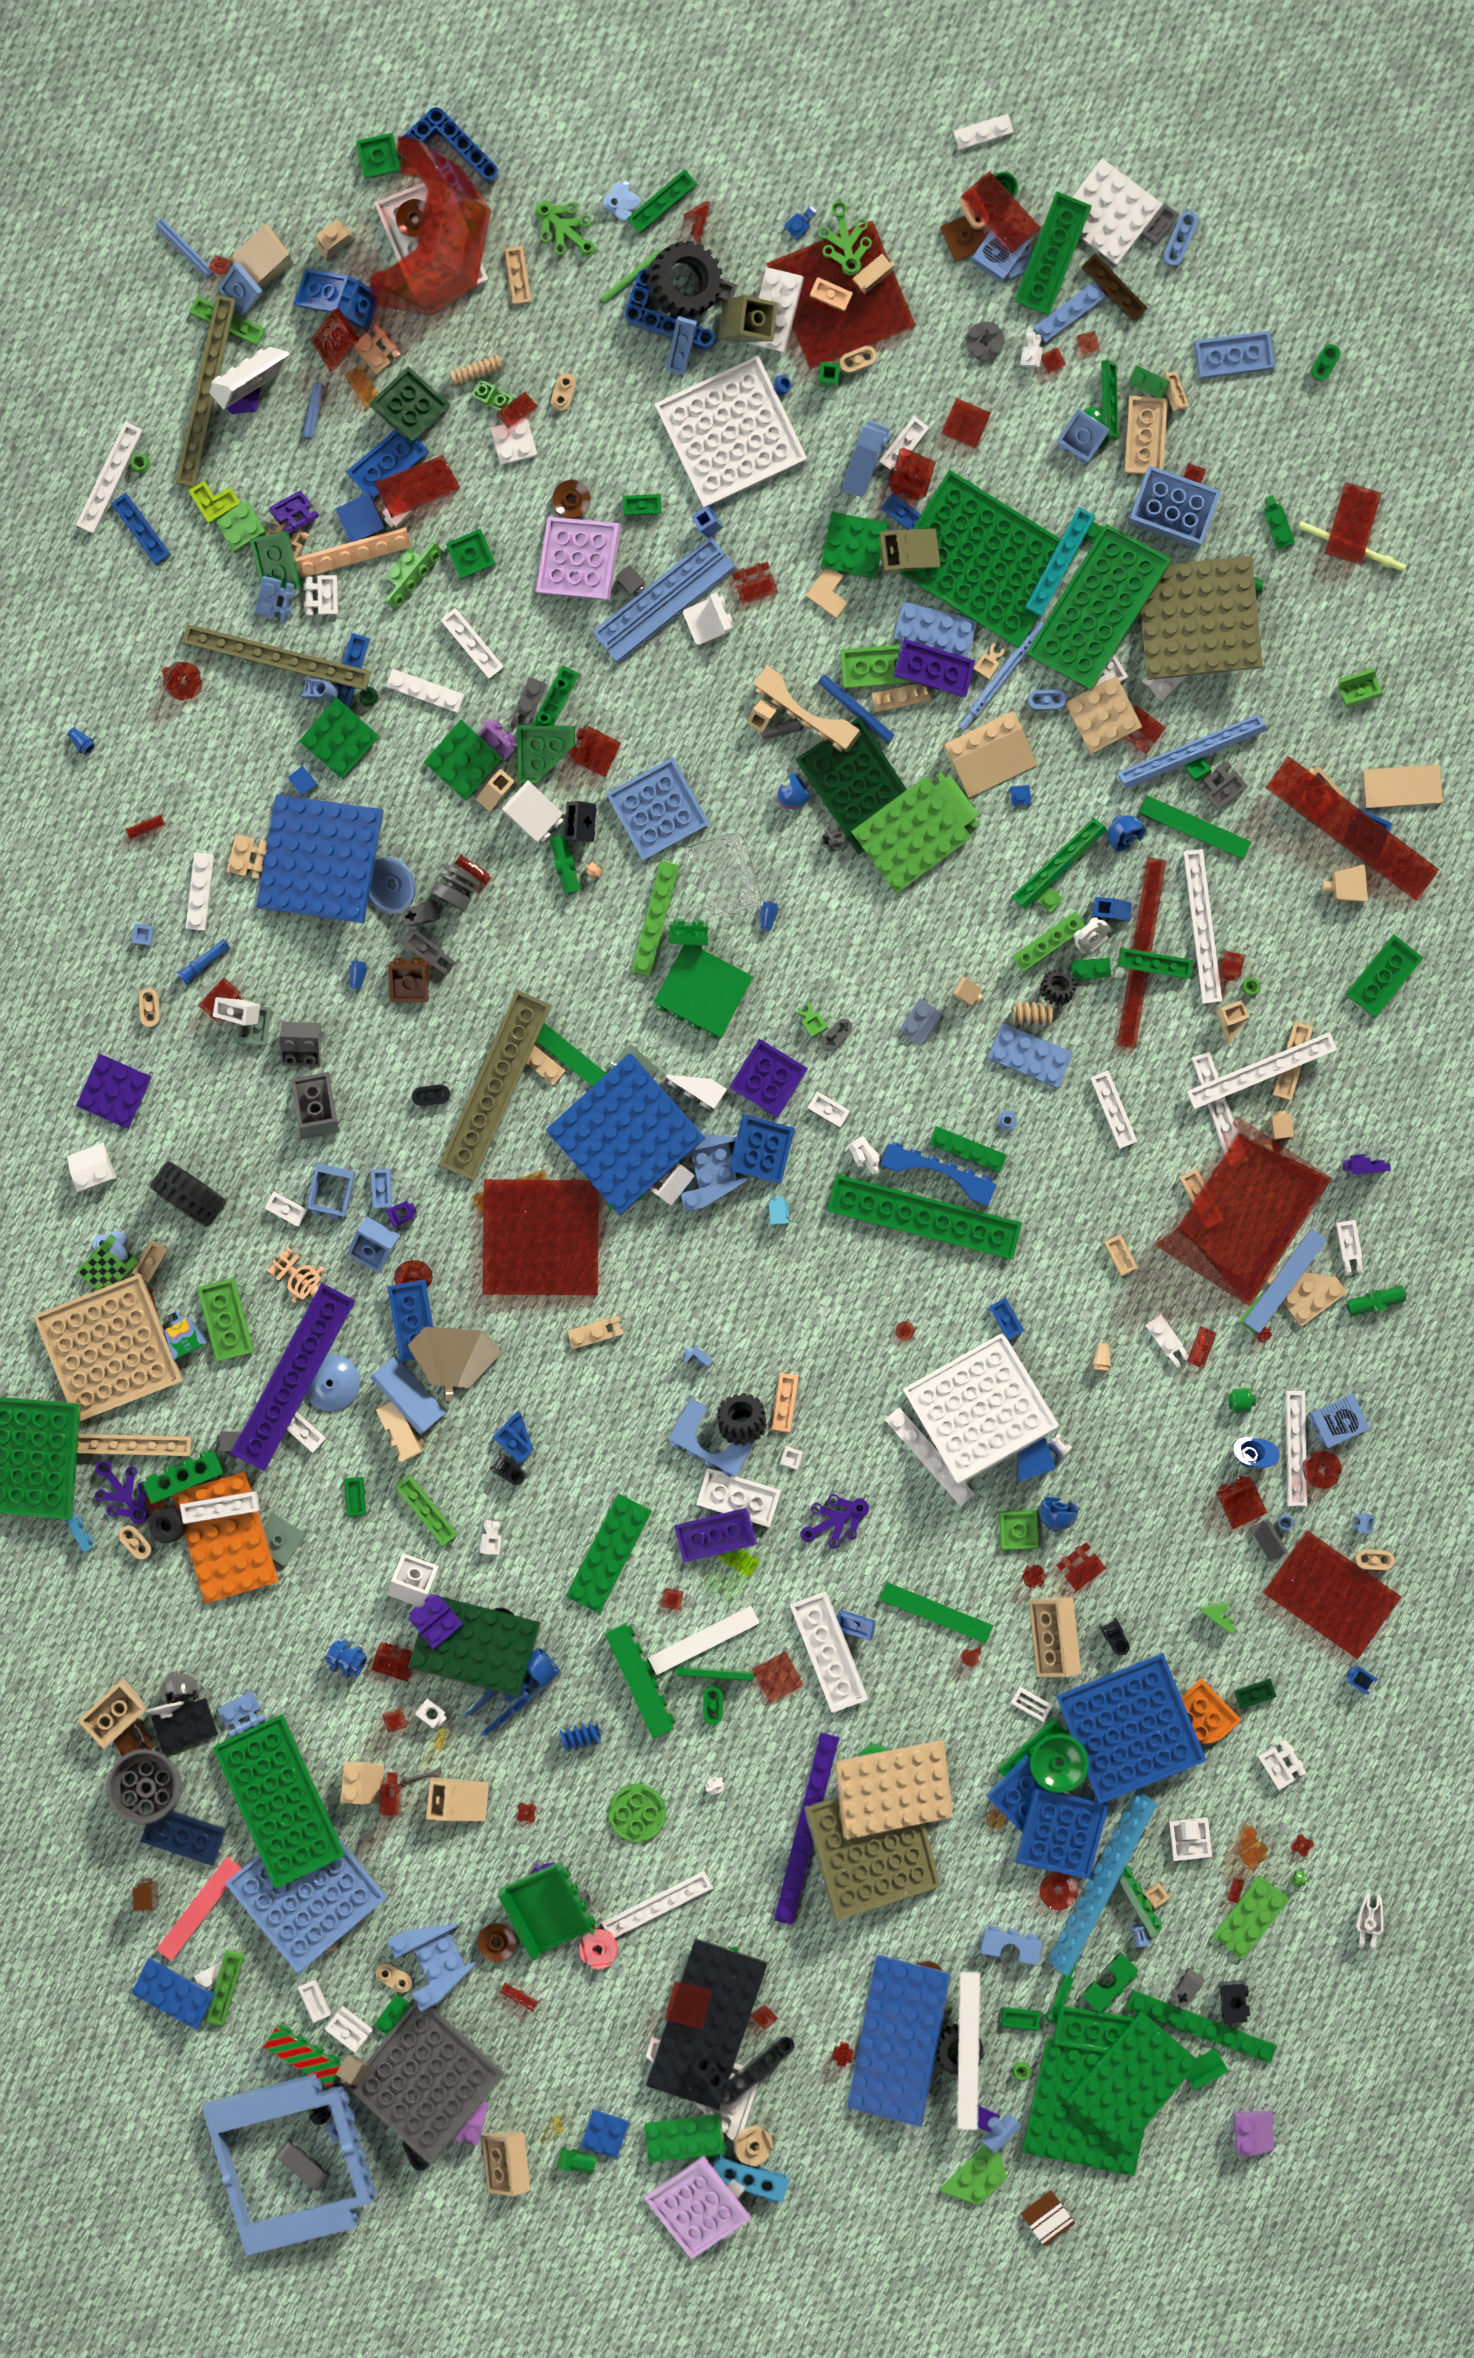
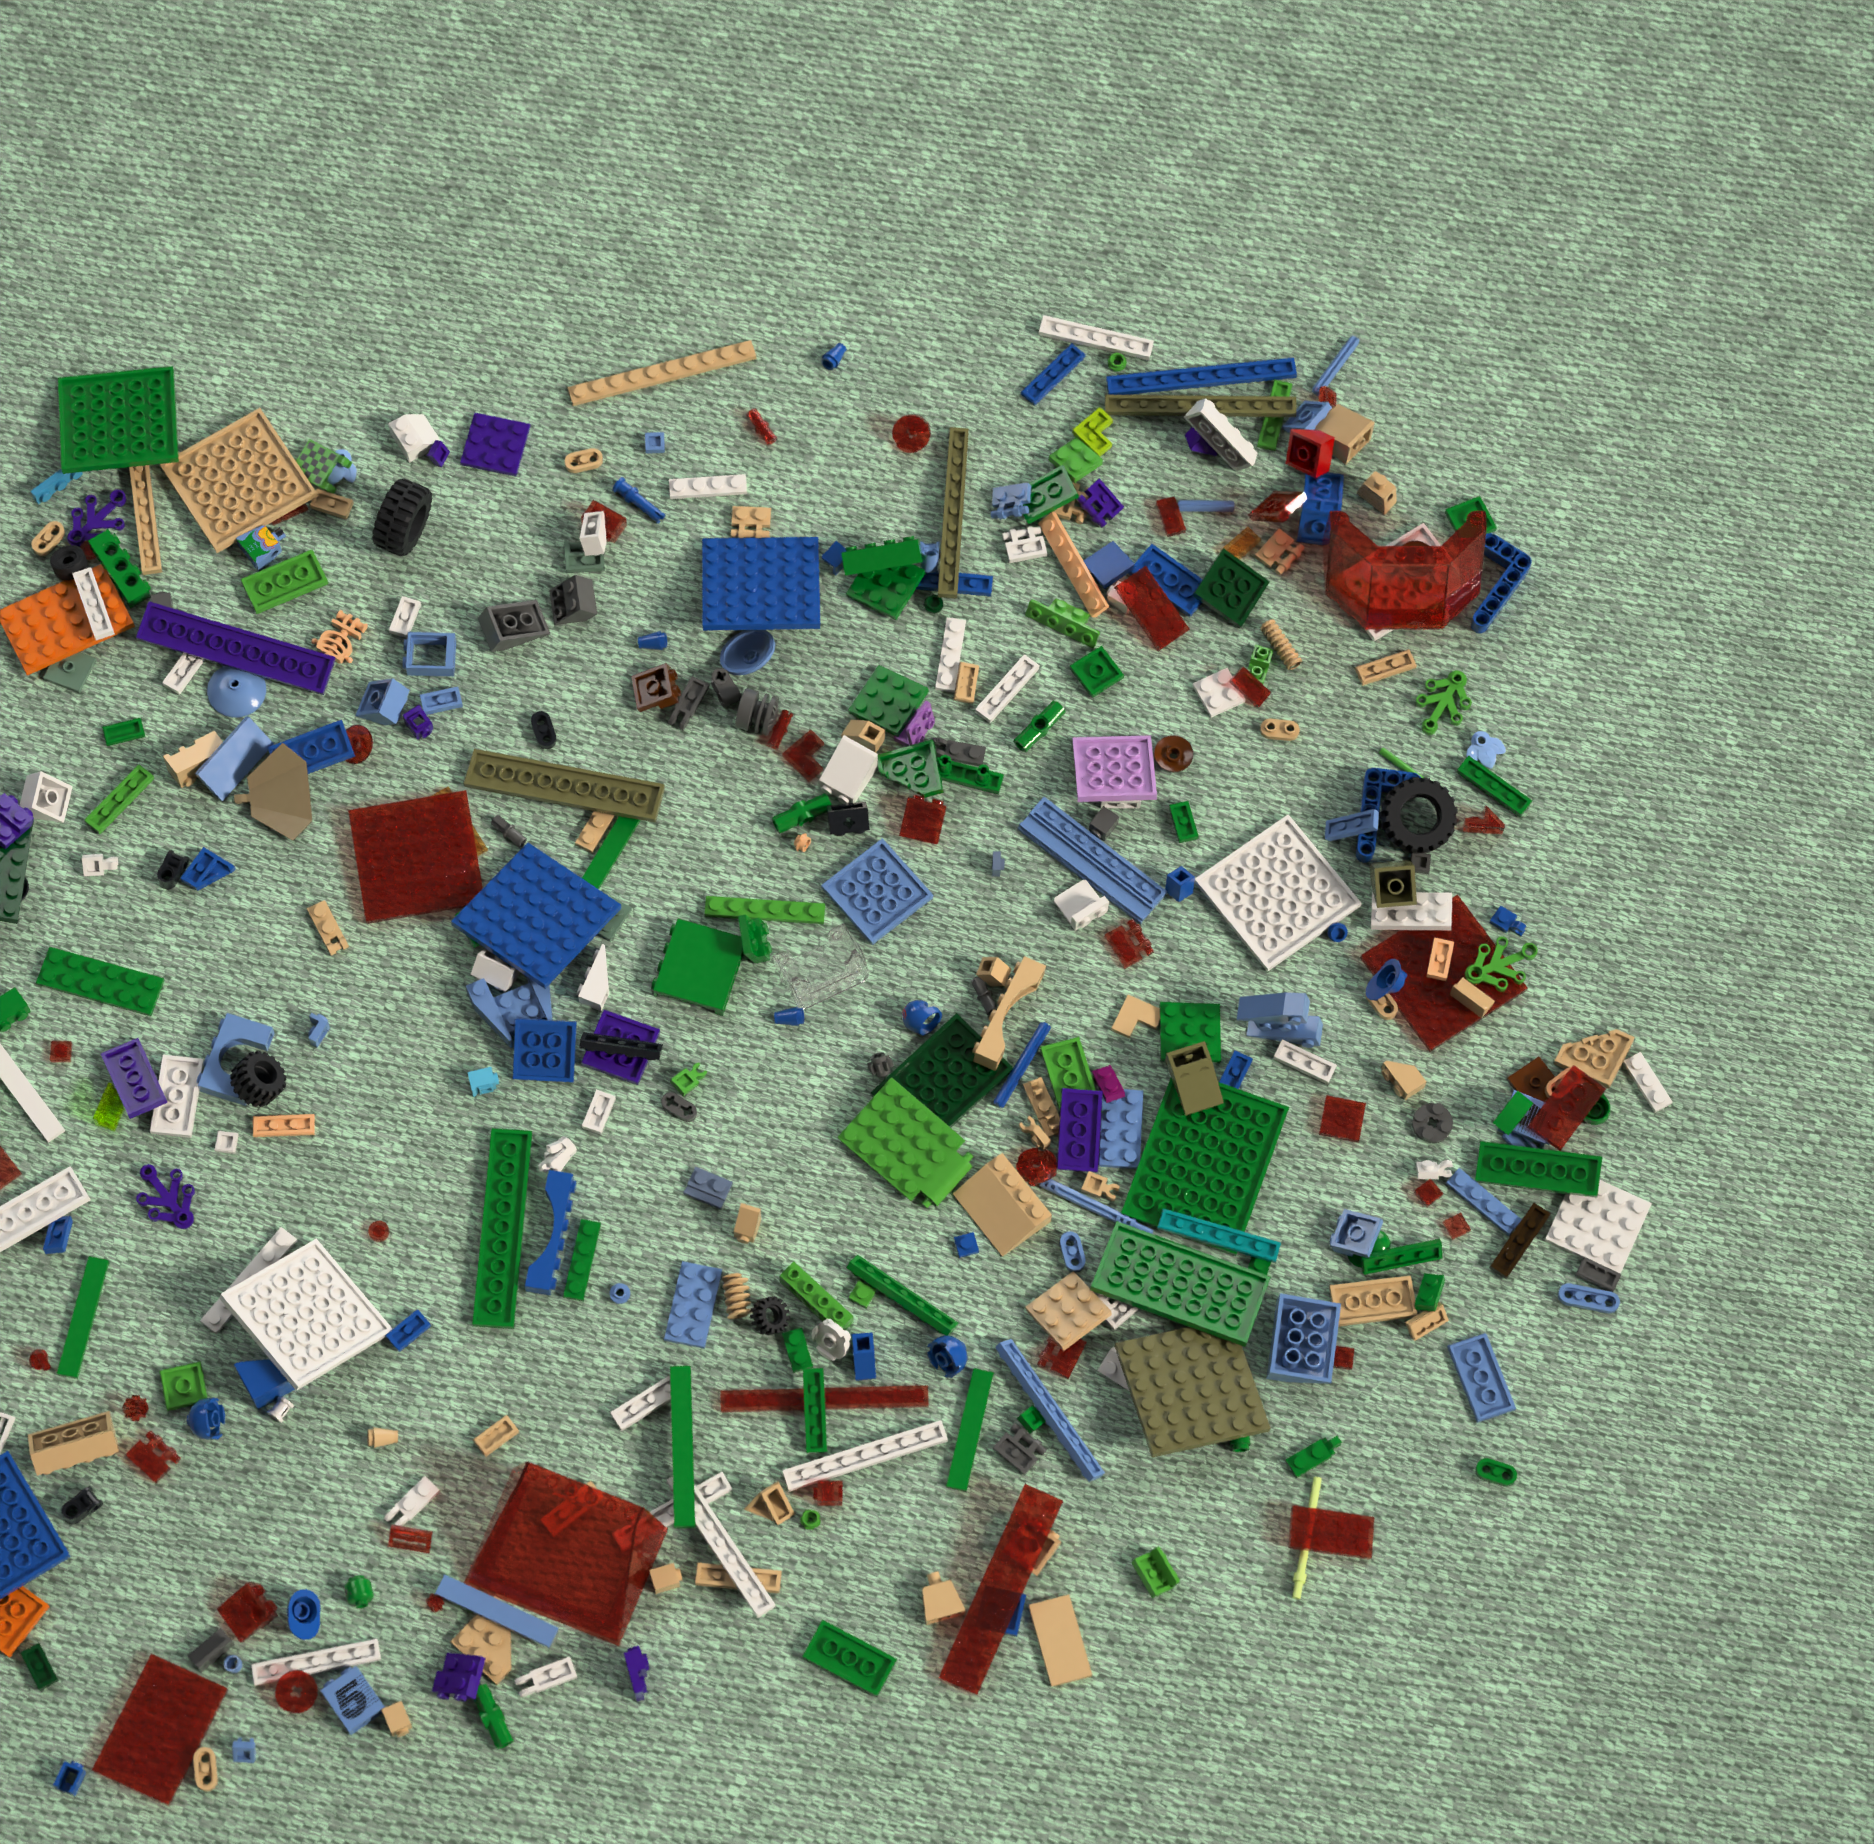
camera: 80 degrees right, 20 degrees down
(66, 913) = (662, 373): none -> tan plate
(115, 1148) = (438, 453): none -> dark purple plate
(173, 383) = (1201, 377): none -> blue plate
(280, 294) = (1310, 451): none -> red slope
(317, 735) = (882, 556): none -> green brick
(319, 447) = (1170, 516): none -> clear red plate
(458, 681) = (966, 682): none -> tan plate
(502, 855) = (800, 755): none -> clear red plate
(511, 611) = (1047, 718): none -> green piece
(529, 1146) = (508, 831): none -> dark grey axle
(652, 689) = (997, 863): none -> sand blue plate
(772, 1077) = (619, 1045): none -> black plate
(829, 375) = (1358, 973): green brick -> none
(844, 350) = (1386, 980): none -> blue piece
(892, 632) = (1108, 1083): none -> magenta plate
(911, 474) = (1275, 1071): clear red plate -> none
(932, 707) = (1038, 1138): none -> tan plate
(939, 355) = (1404, 1077): none -> tan slope
(951, 172) = (1597, 1055): none -> tan plate
(970, 718) = (1036, 1175): none -> clear red plate
(999, 263) = (1512, 1112): none -> green slope
(1167, 1088) = (682, 1447): none -> green tile
(1215, 1612) = (120, 1606): bright green slope -> none
(1337, 1324) = (459, 1677): none -> dark purple plate
(1363, 1384) = (397, 1719): none -> tan brick

